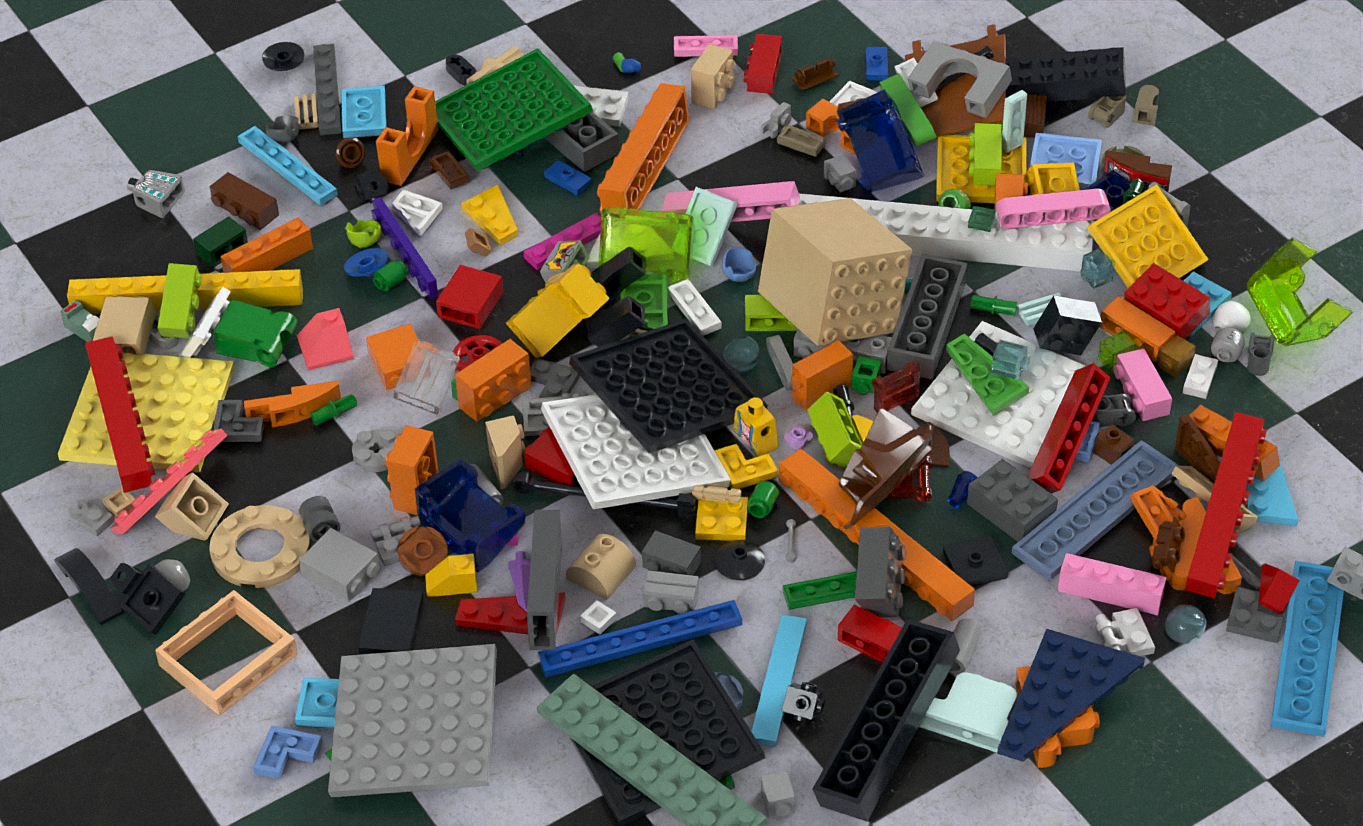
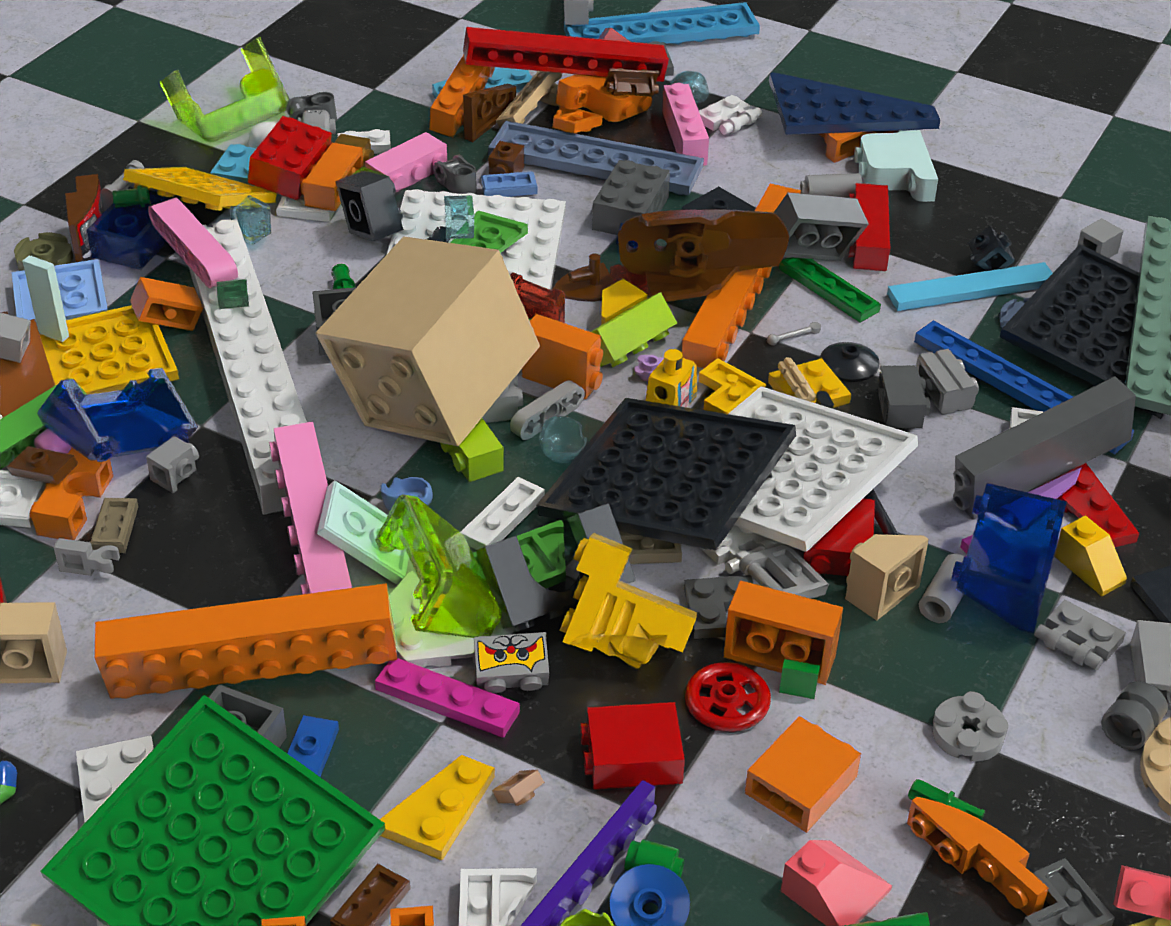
camera: 120 degrees left, 5 degrees down
(410, 465) = (1005, 624): orange brick -> none
(421, 550) = (1083, 596): dark orange tile -> none
(426, 377) = (834, 700): clear brick -> none
(602, 565) = (951, 437): tan brick -> none
(762, 499) = (763, 358): green brick -> none
(886, 720) = (975, 179): black brick -> none
(954, 199) = (191, 348): bright green head -> none
(985, 153) = (92, 334): lime brick -> none
(1033, 307) = (329, 254): light aqua tile -> none
(1051, 178) = (117, 279): yellow plate -> none
(1068, 427) = (519, 175): red brick -> none

